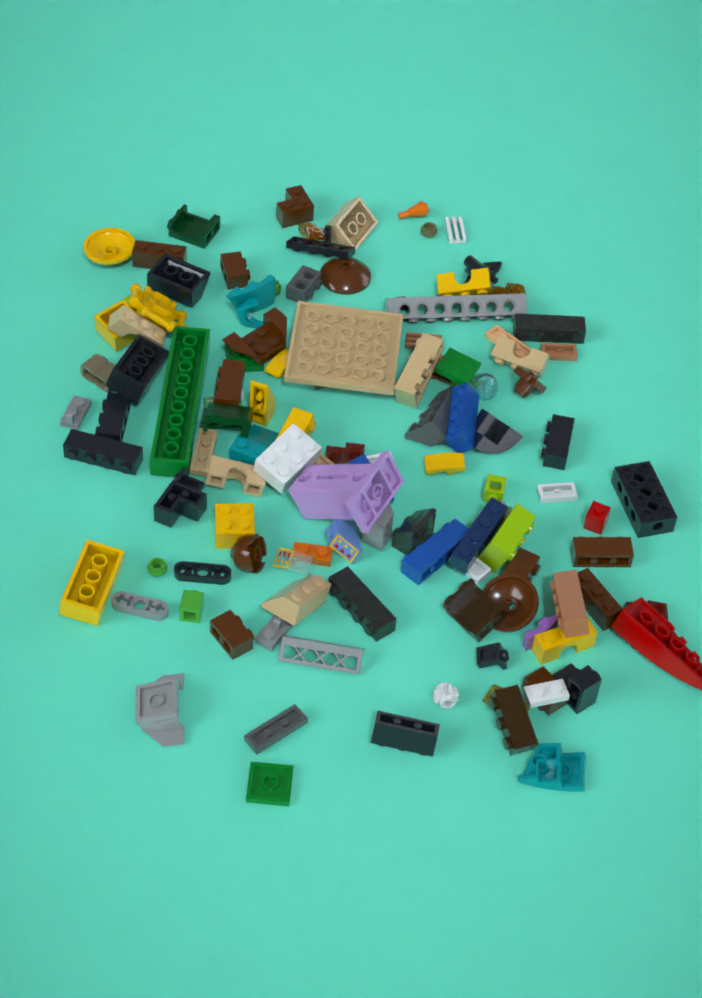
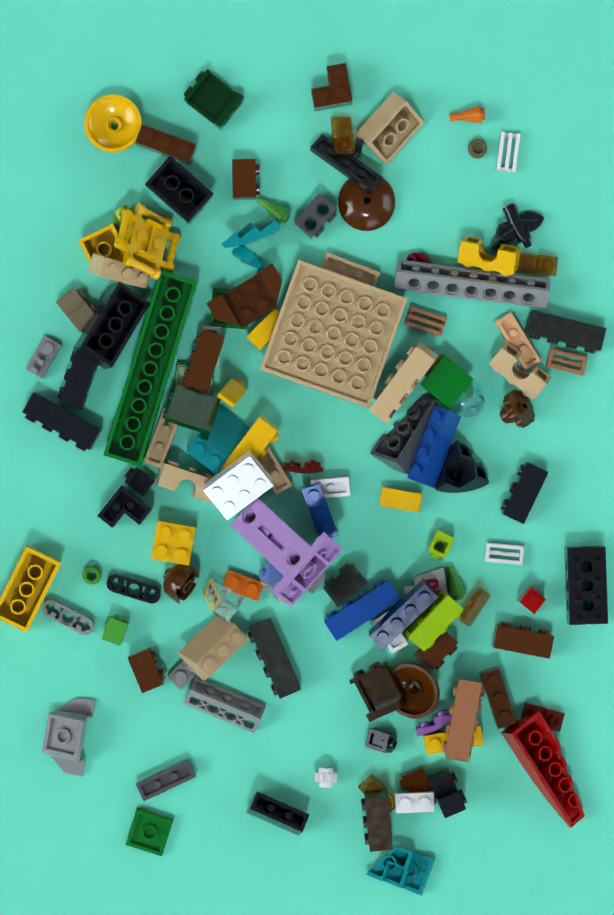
camera: 15 degrees right, 40 degrees up
(544, 535) = (474, 607): none -> clear orange slope

